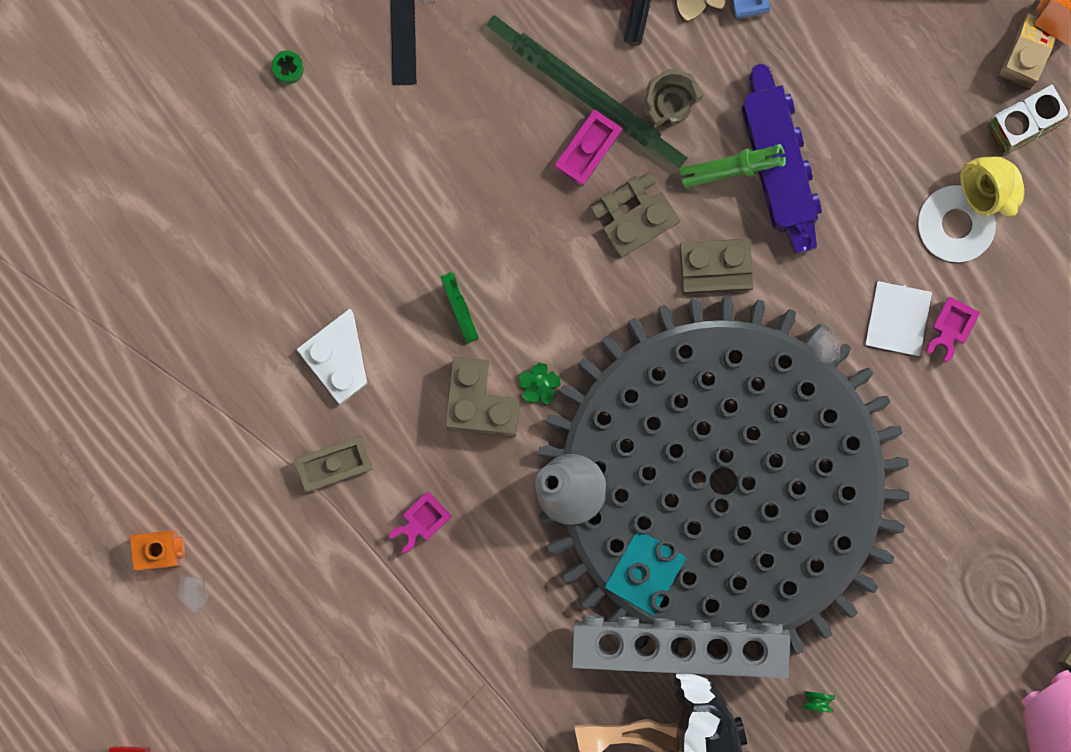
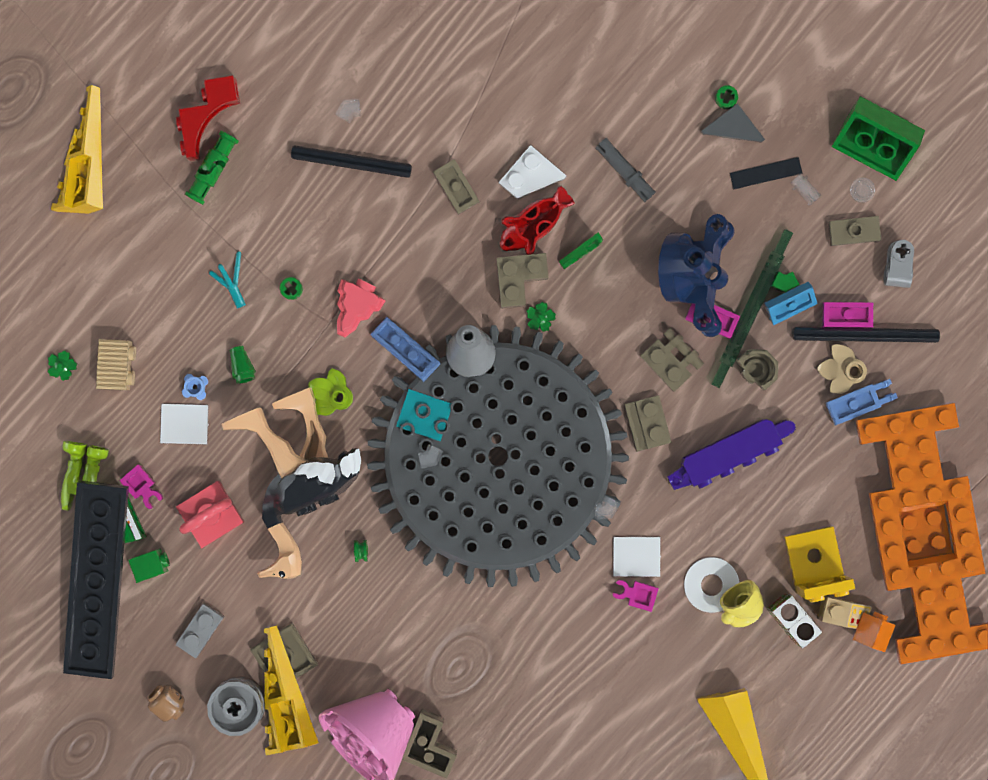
camera: 80 degrees right, 5 degrees up
(156, 550) = (372, 78): orange brick -> none
(266, 605) = (351, 161): none -> black axle
(329, 64) = (734, 125): none -> dark grey tile
(360, 224) = (626, 171): none -> dark grey pin
(406, 365) = (534, 222): none -> red animal
(424, 518) = (430, 257): dark pink plate -> none
(426, 738) = (283, 288): none -> green bush
(470, 638) = (356, 304): none -> coral rock
(513, 164) = (687, 269): none -> dark blue piece
(547, 581) = (405, 349): none -> medium blue tile
(559, 39) = (785, 282): none -> green piece
(584, 705) = (327, 391): none -> lime plate
(590, 37) = (790, 303): none -> dark azure plate
(707, 575) = (430, 457): none -> clear piece
(746, 163) = (722, 428): bright green pin -> none
(771, 663) = (360, 388): light grey brick -> none
(975, 68) = (822, 577): none -> yellow bracket

